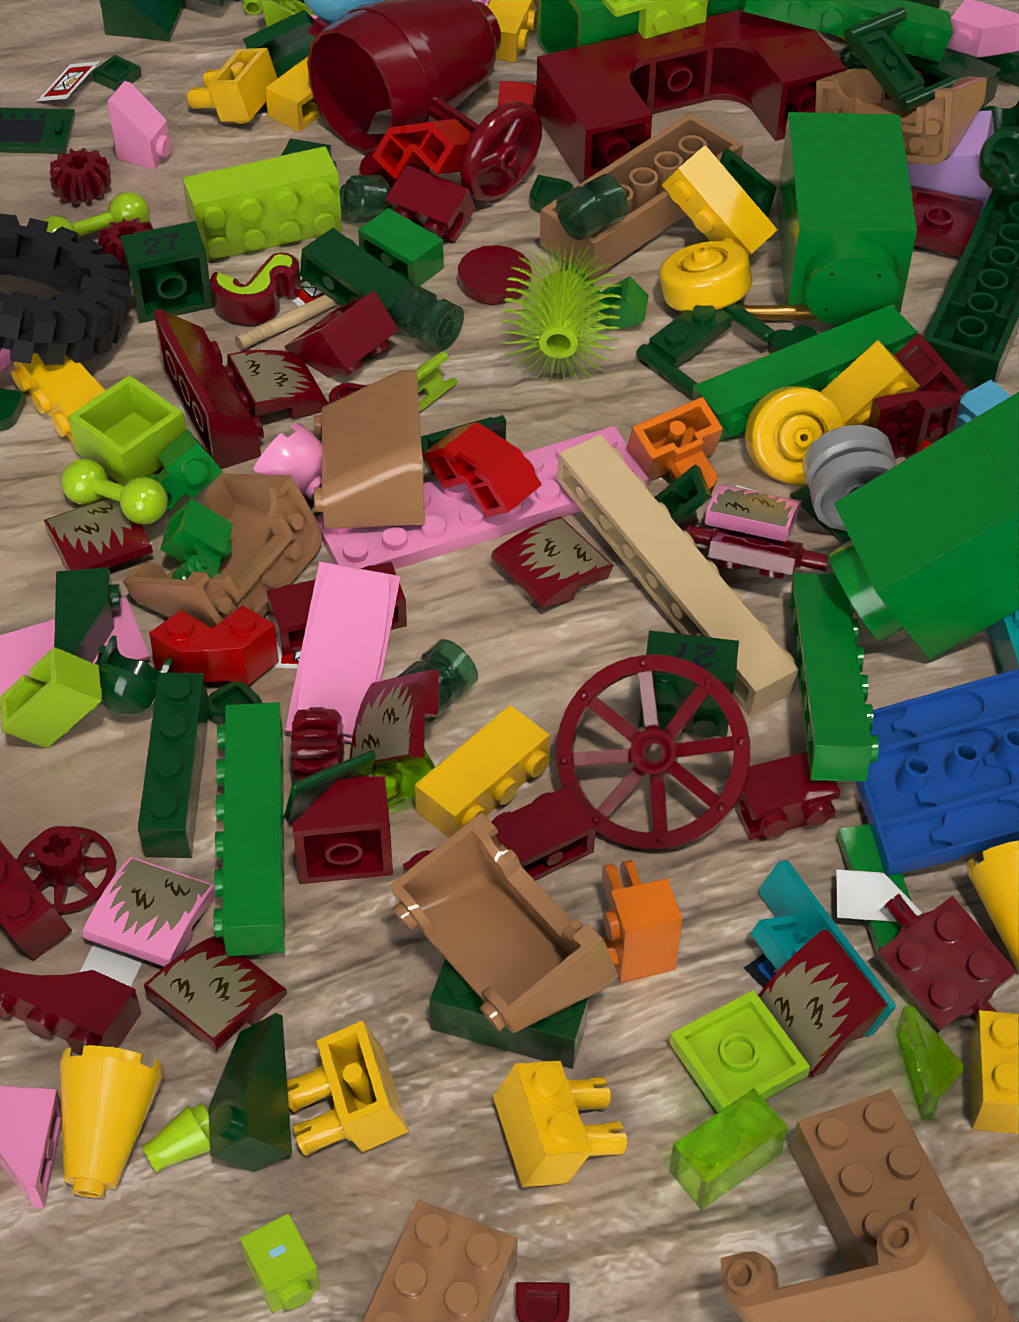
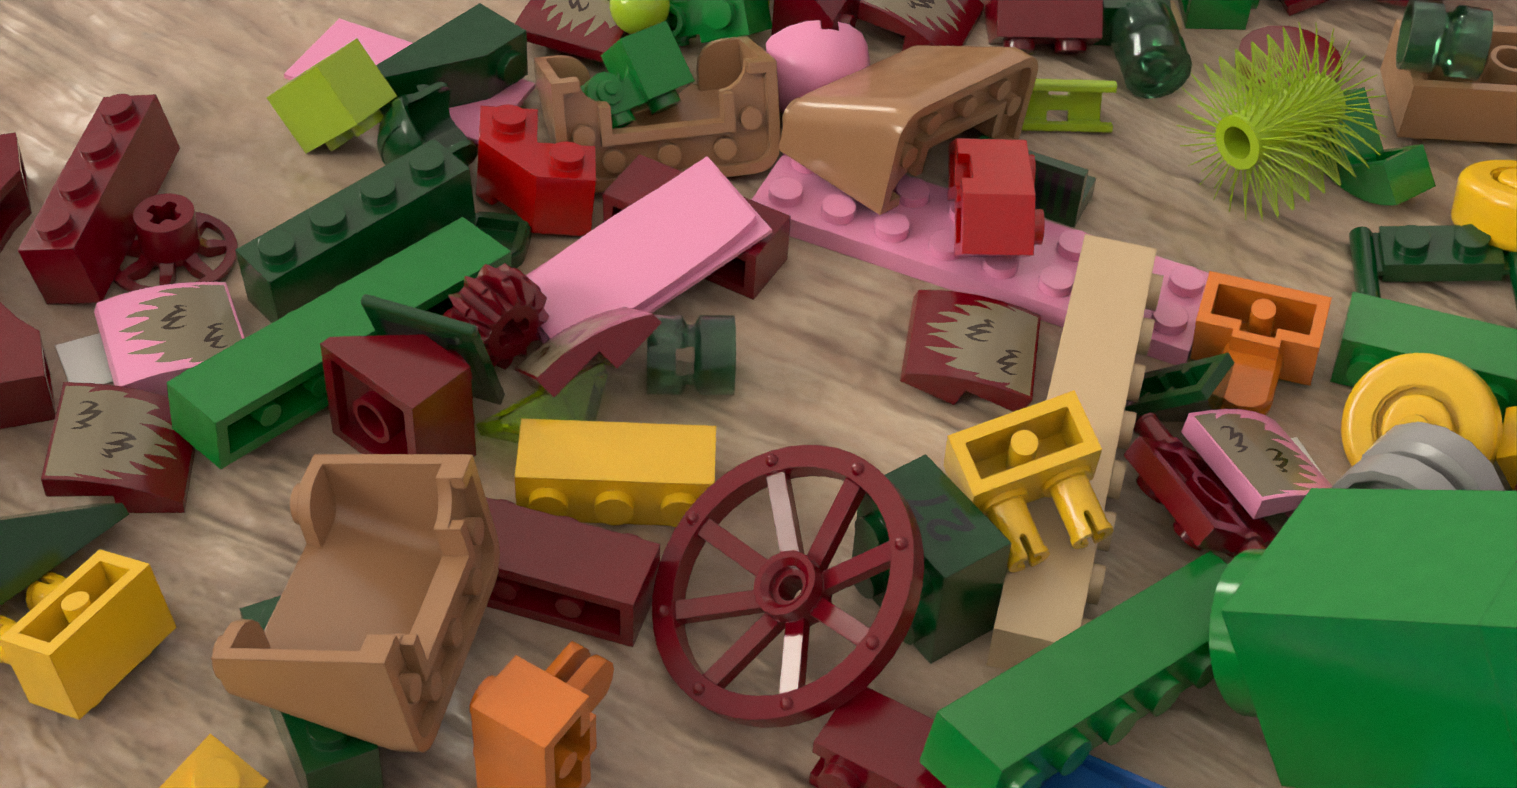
camera: 45 degrees right, 5 degrees down
(694, 590) = (1028, 457): none -> yellow brick

